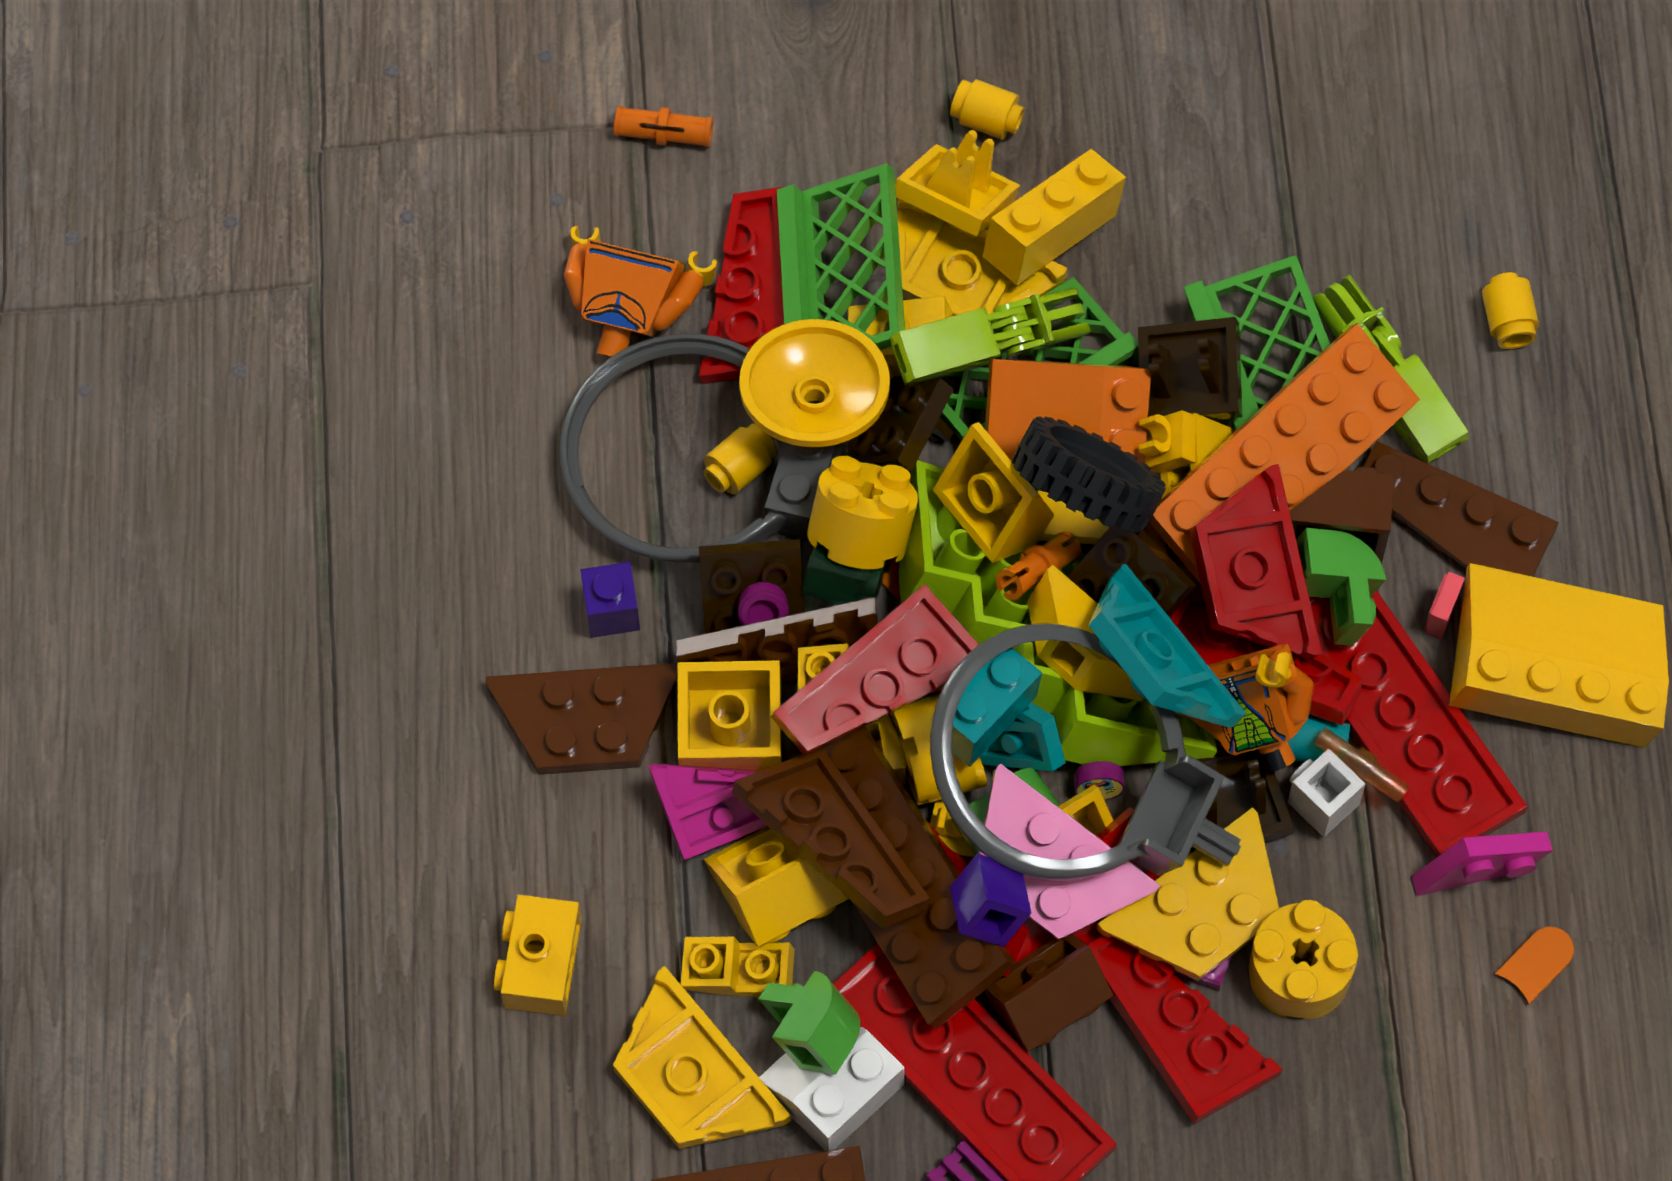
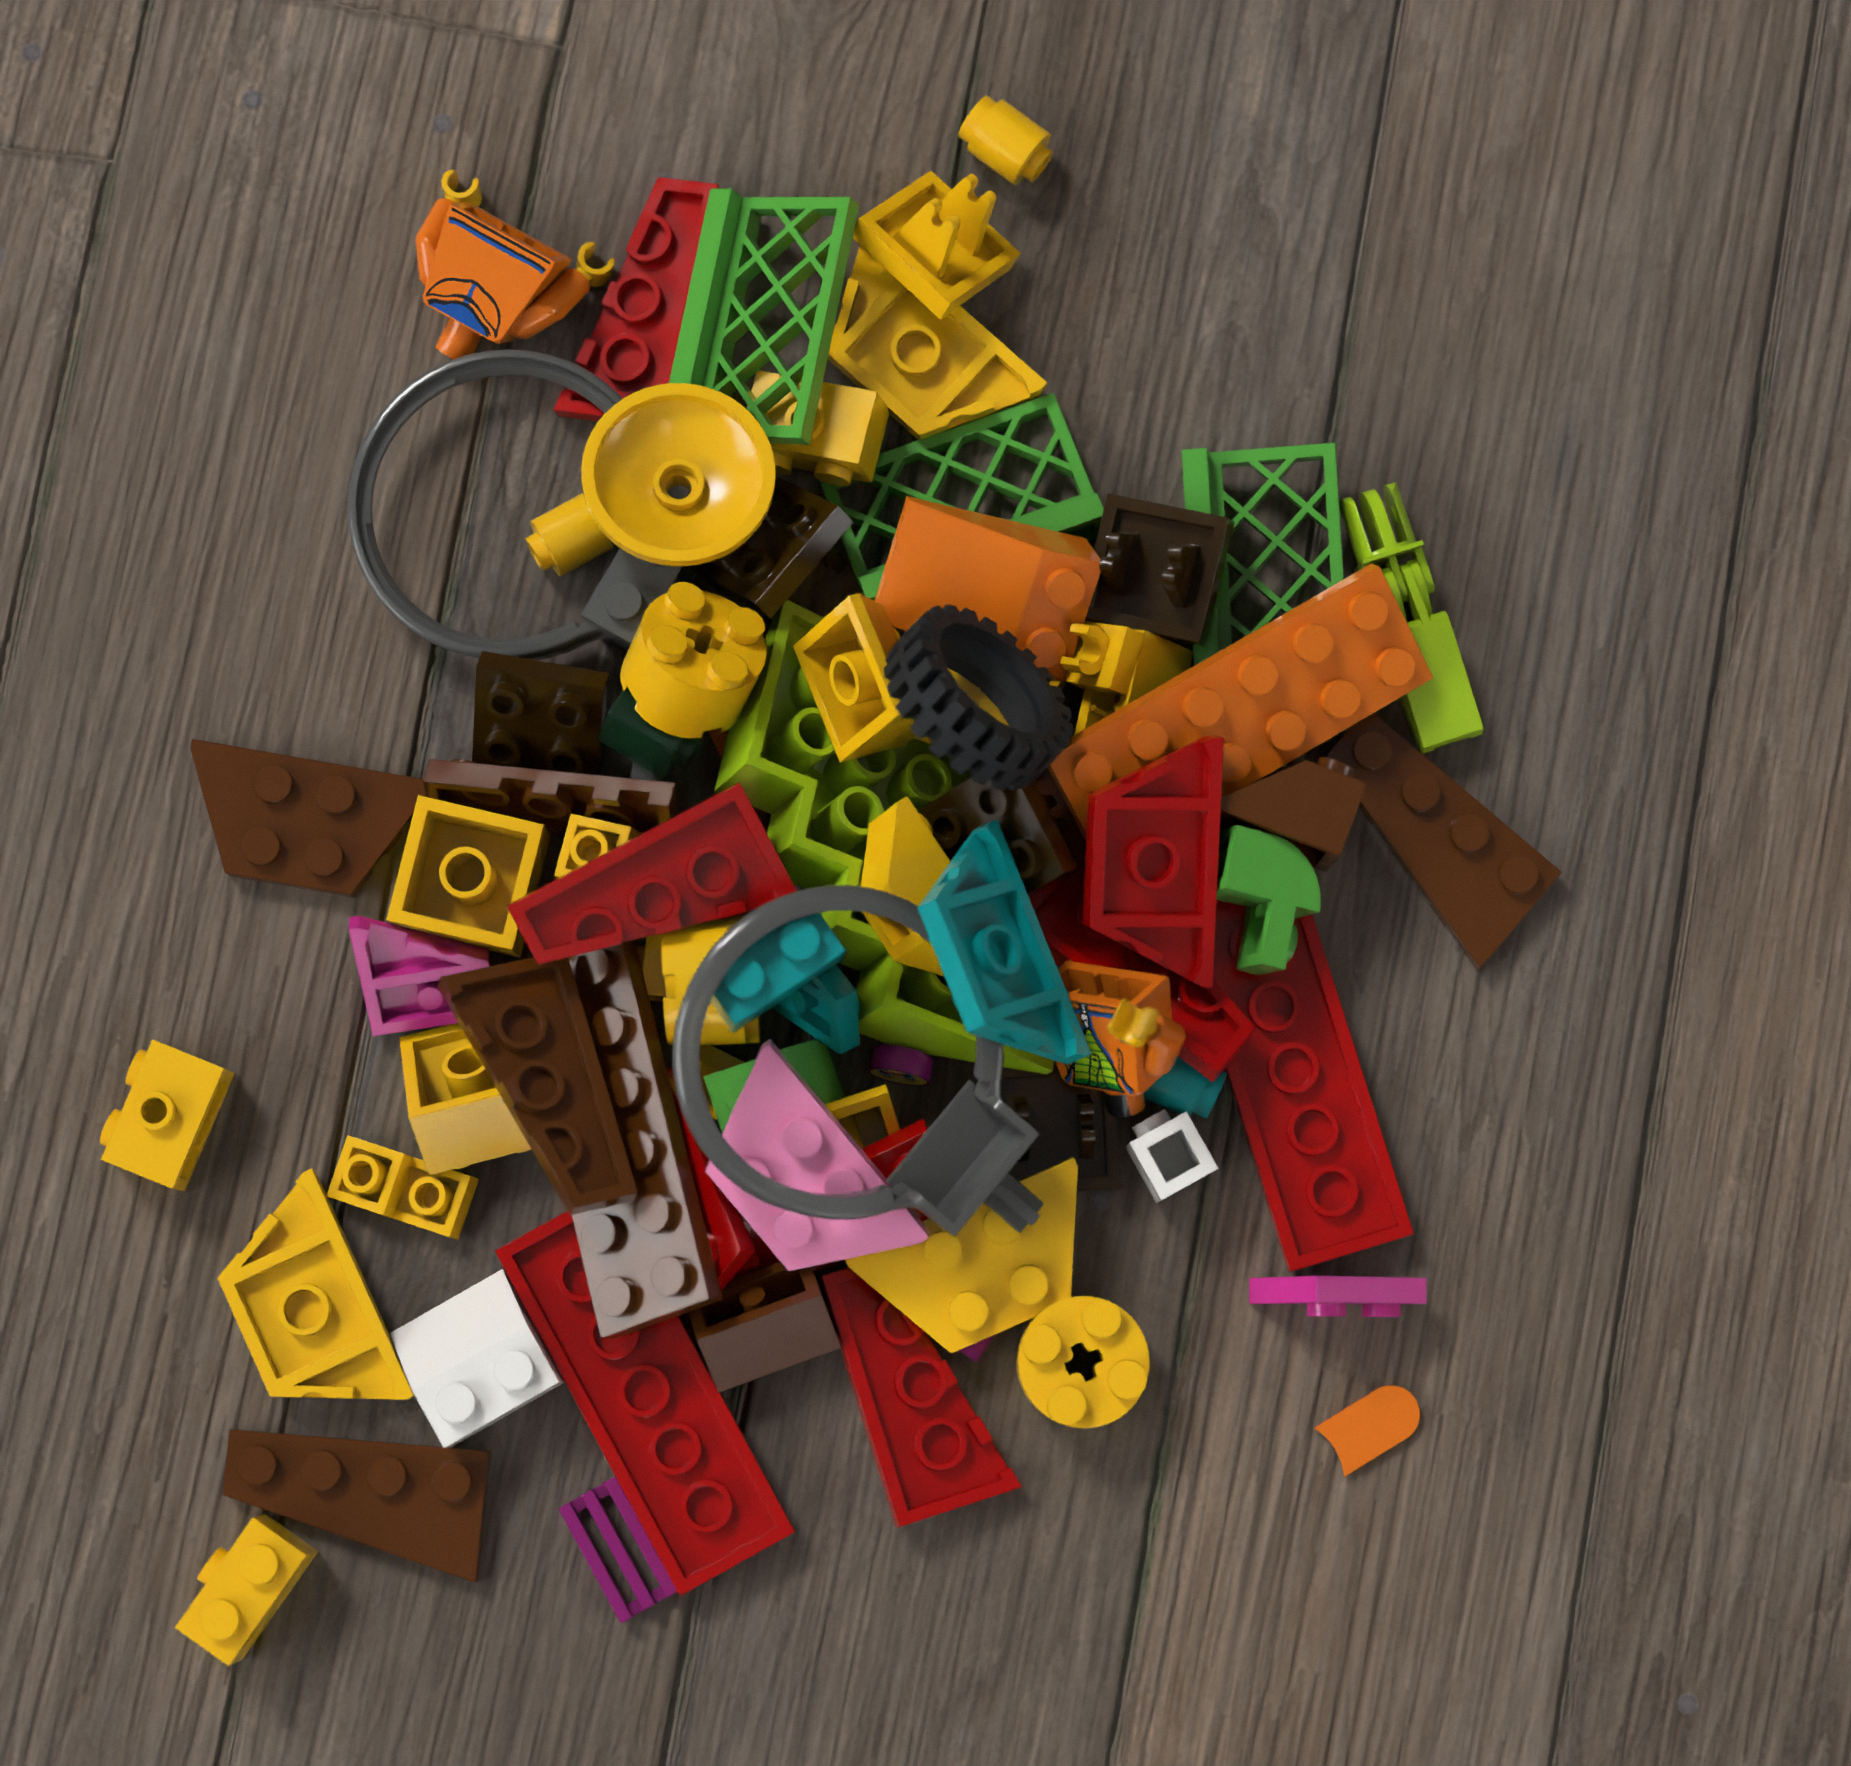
camera: 10 degrees right, 15 degrees up
(610, 599) = (366, 680): dark purple brick -> none
(630, 123) = (596, 61): orange pin -> none
(762, 603) = (544, 744): magenta tile -> none
(815, 1023) = (471, 1302): bright green brick -> none
(970, 340) = (890, 461): lime arm -> none
(990, 901) = (706, 1221): dark purple brick -> none
(1034, 563) = (892, 781): orange pin -> none
(1053, 216) = (1045, 314): yellow brick -> none
(1362, 764) = (1223, 1135): clear orange bar -> none
(1444, 604) = (1388, 946): coral tile -> none
(1510, 310) = (1584, 578): yellow brick -> none
(1561, 657) = (1513, 1049): yellow slope -> none

